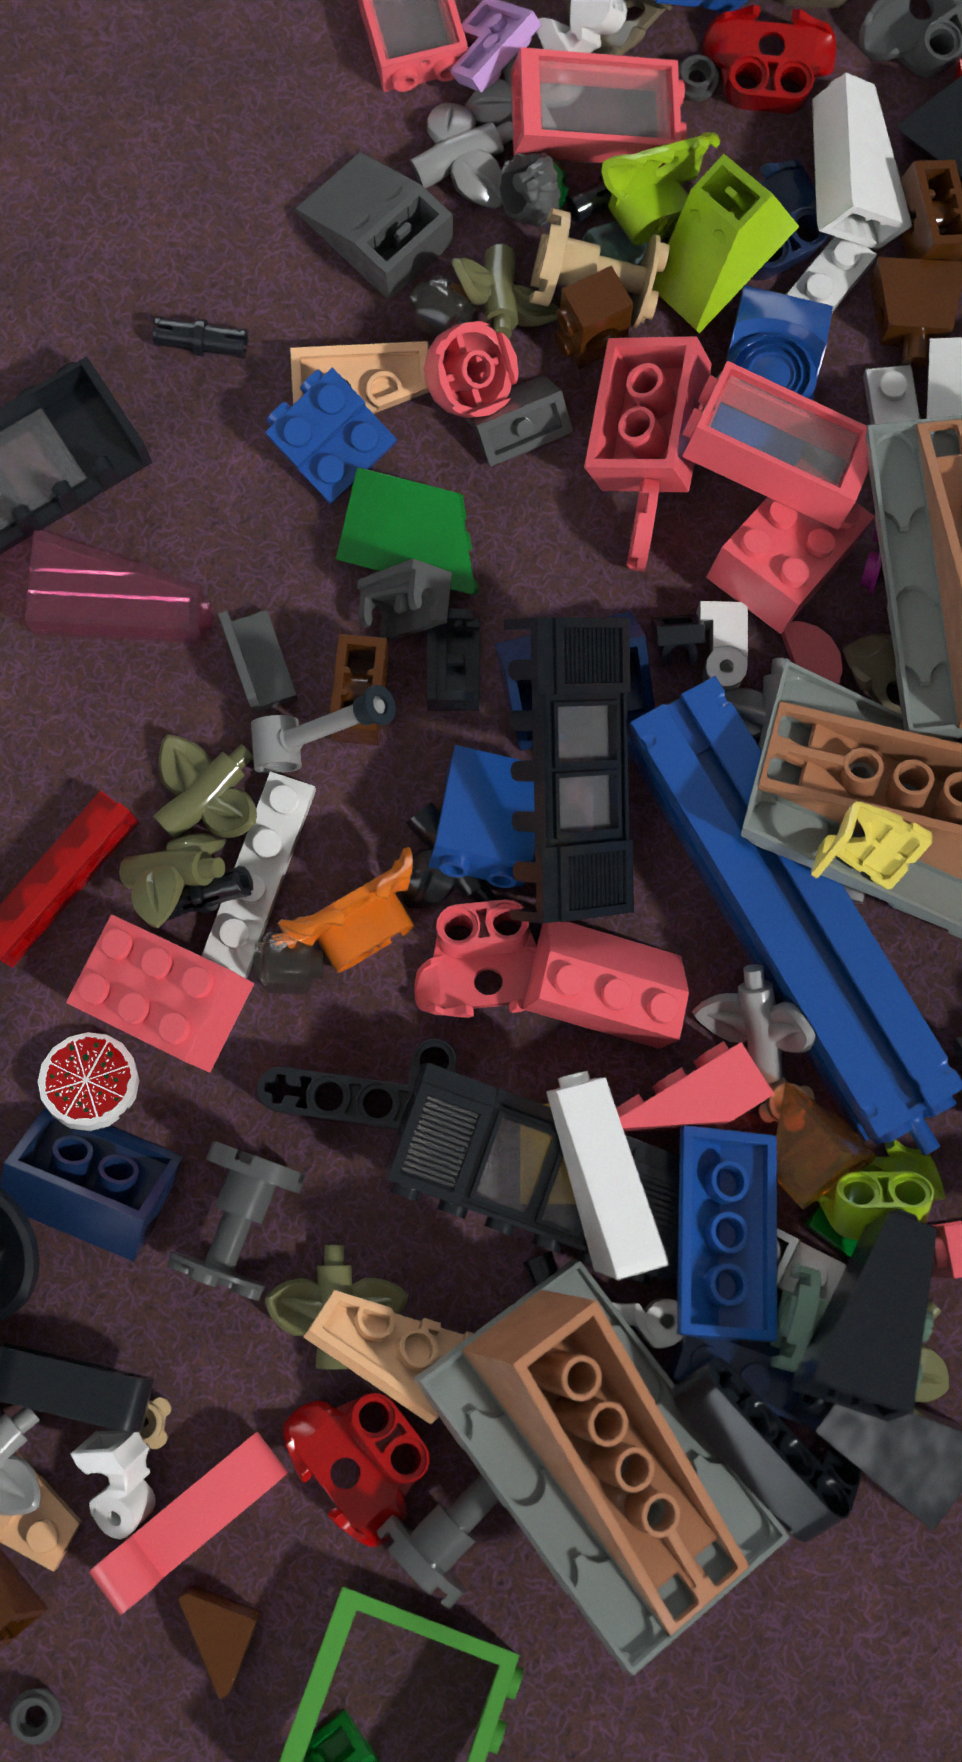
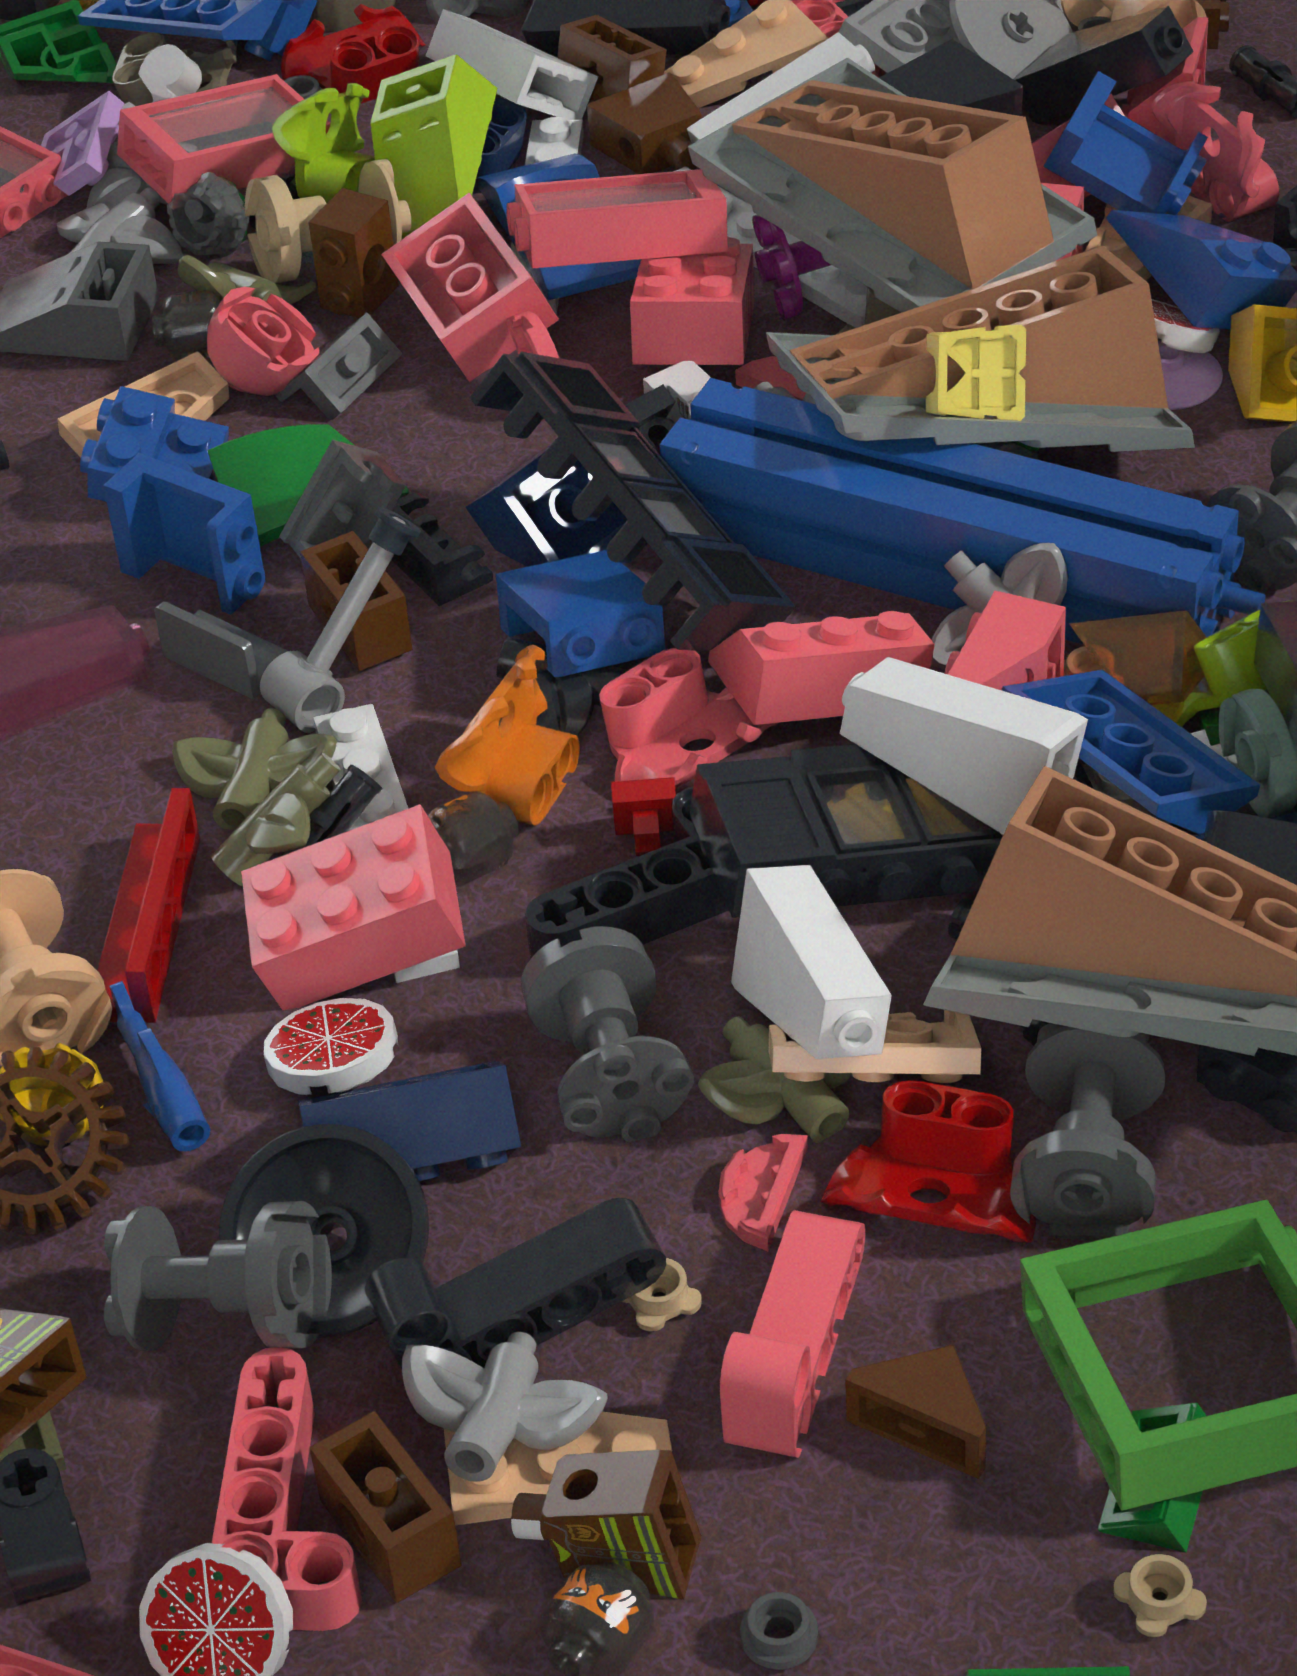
camera: 30 degrees left, 35 degrees down
(127, 1496) = (693, 1352): white leg -> none
(259, 1380) = (758, 1186): none -> coral tile
(274, 506) = (186, 522): none -> blue panel
(373, 1289) = (807, 966): none -> white slope
(409, 1023) = (643, 810): none -> red tile

